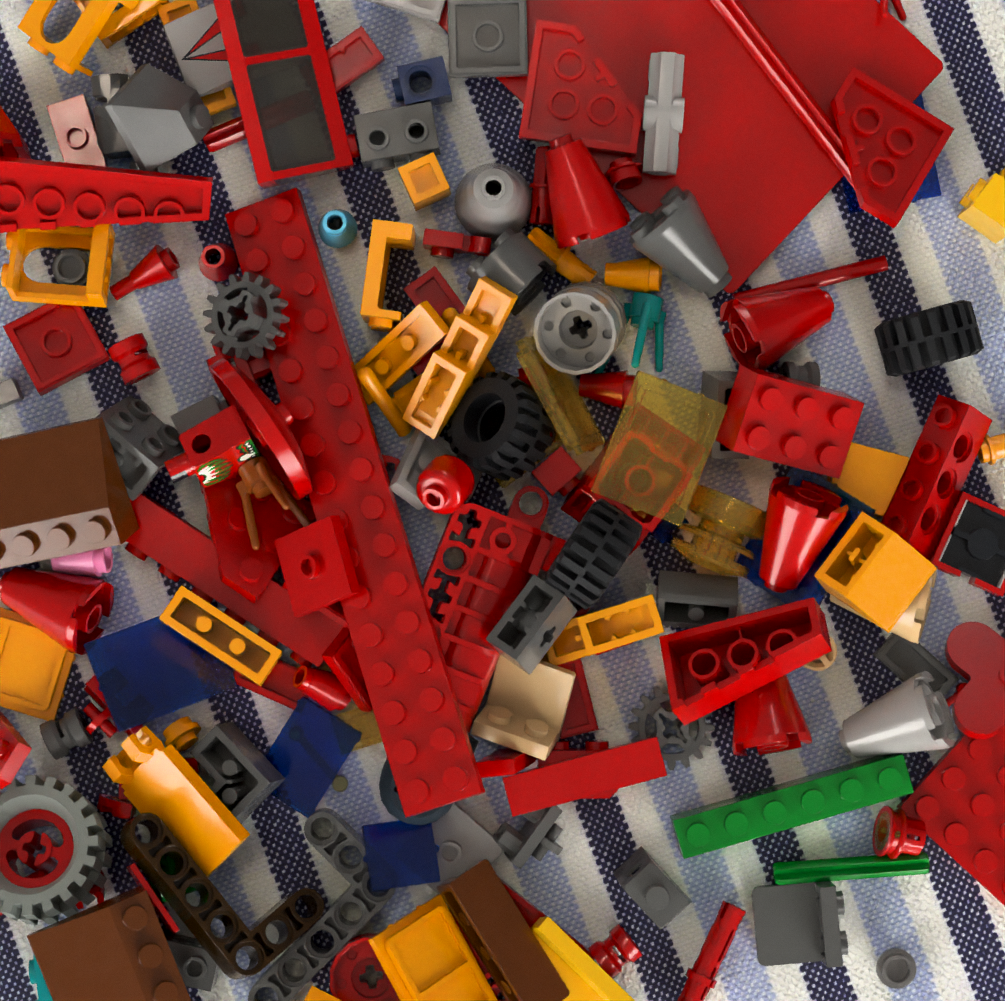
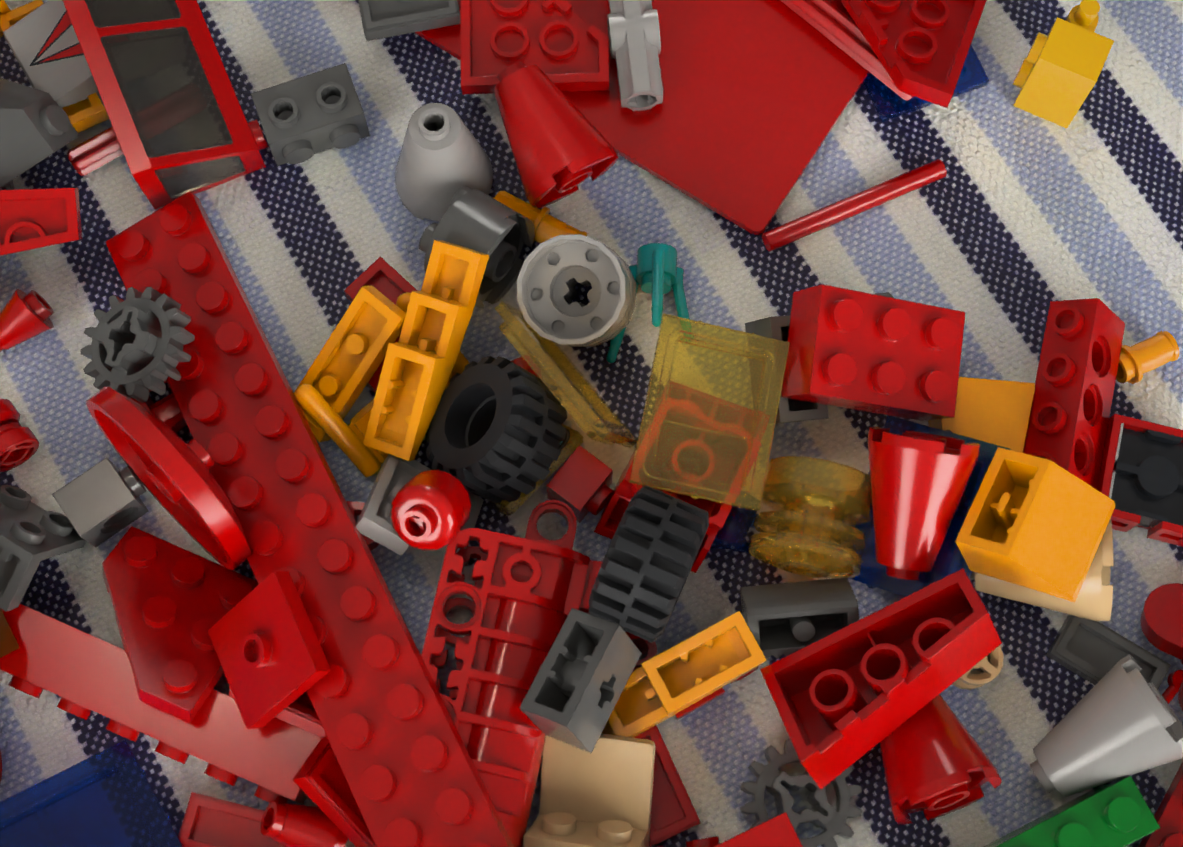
camera: 10 degrees left, 15 degrees down
(213, 449) = (112, 521): red torso -> none
(220, 635) = (148, 778): light orange brick -> none
(224, 268) = (94, 291): red cone -> none
(262, 481) = (184, 557): dark orange plant -> none
(342, 236) = (249, 231): medium azure cone -> none
(353, 58) = (246, 40): red plate -> none
(383, 238) = (313, 226): light orange panel -> none
(424, 181) = (352, 160): light orange panel -> none
(431, 68) = (335, 35): dark blue brick -> none
(445, 243) = (395, 226): red plate -> none
(540, 202) = (502, 162): red axle -> none
(607, 387) = (623, 369): red cone -> none
(624, 173) = (601, 108): red plate -> none
(634, 275) = (635, 227): light orange cone -> none
(682, 242) = (688, 172): dark grey cone -> none
(773, 323) = (819, 249): red cone -> none
(929, 338) = (1022, 231): black tyre -> none

